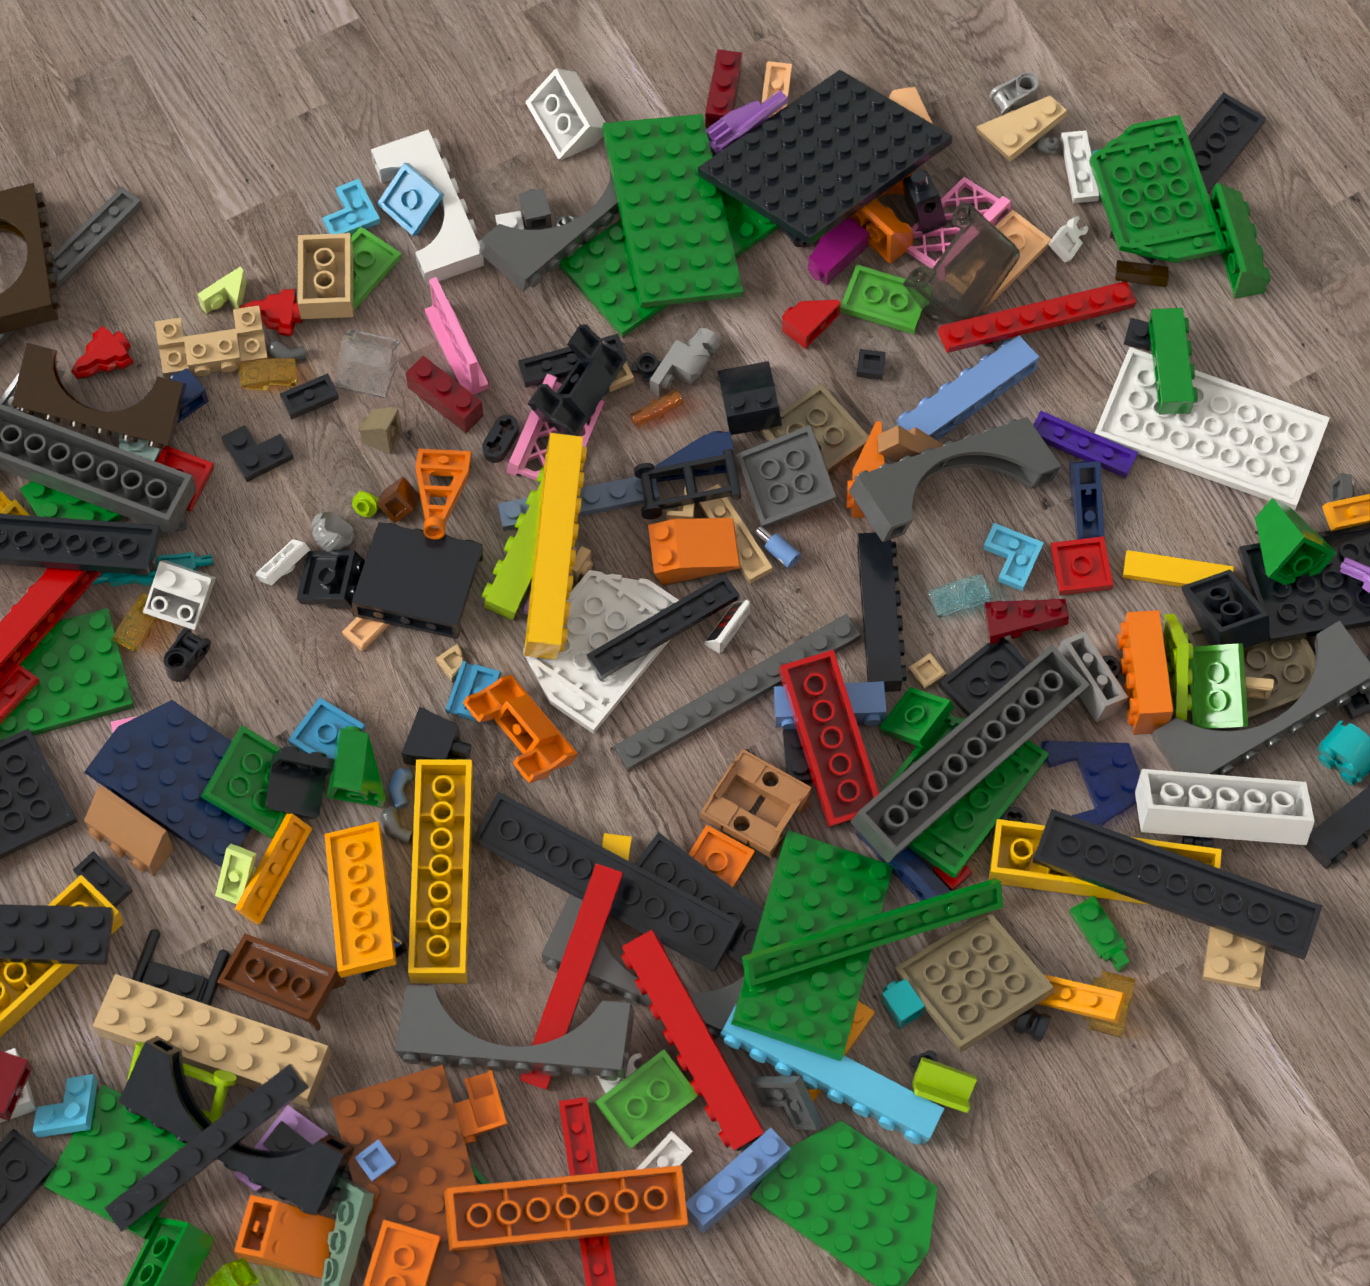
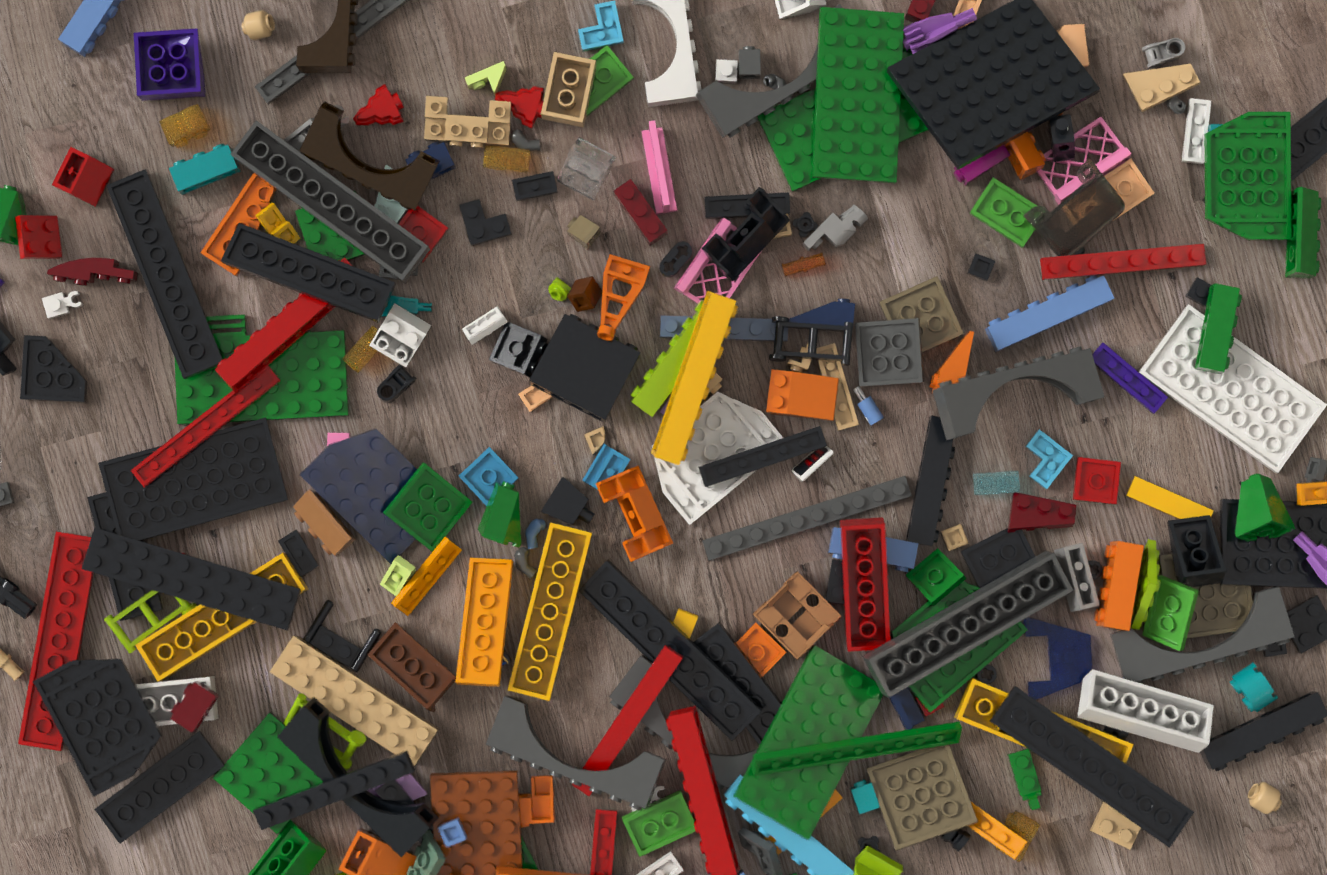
camera: 10 degrees right, 20 degrees up
(73, 1114) = (245, 730): medium azure plate -> none
(297, 782) = (457, 516): black bracket -> none
(332, 532) = (528, 311): light grey hair -> none
(410, 199) = (651, 31): plate -> none
(749, 398) = (878, 273): black slope -> none
(809, 320) = (942, 216): red slope -> none
(899, 443) = (990, 356): medium nougat slope -> none
(1066, 240) = (1166, 196): white plate -> none
(1087, 498) = (1117, 426): dark blue slope -> none
(1141, 273) = (1218, 240): dark brown tile -> none
(1258, 687) = (1202, 621): tan tile -> none

